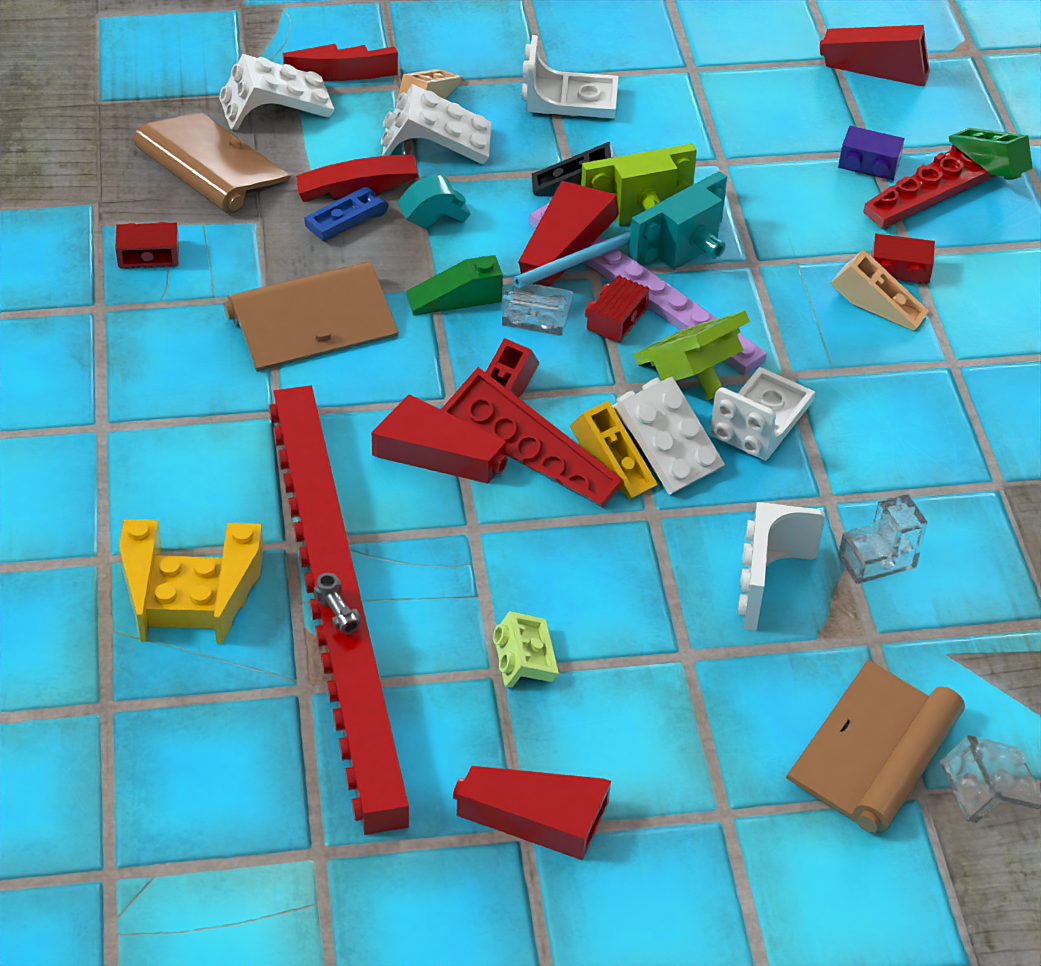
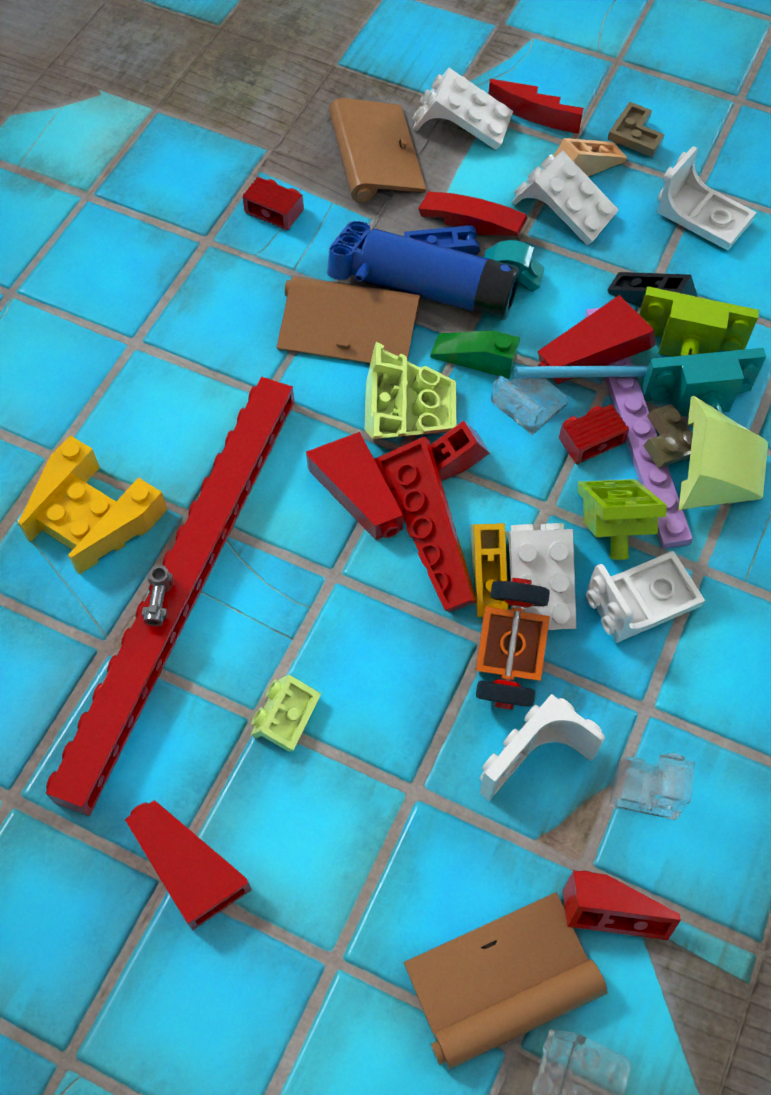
camera: 35 degrees right, 15 degrees up
(357, 235) = (423, 270): none -> blue piece
(422, 353) = (406, 398): none -> yellowish green wedge
(448, 53) = (631, 130): none -> dark tan plate
(686, 490) = (512, 643): none -> brick
(691, 285) = (673, 439): none -> dark tan plate
(748, 274) = (724, 460): none -> yellowish green wedge
(923, 643) = (610, 906): none -> red slope

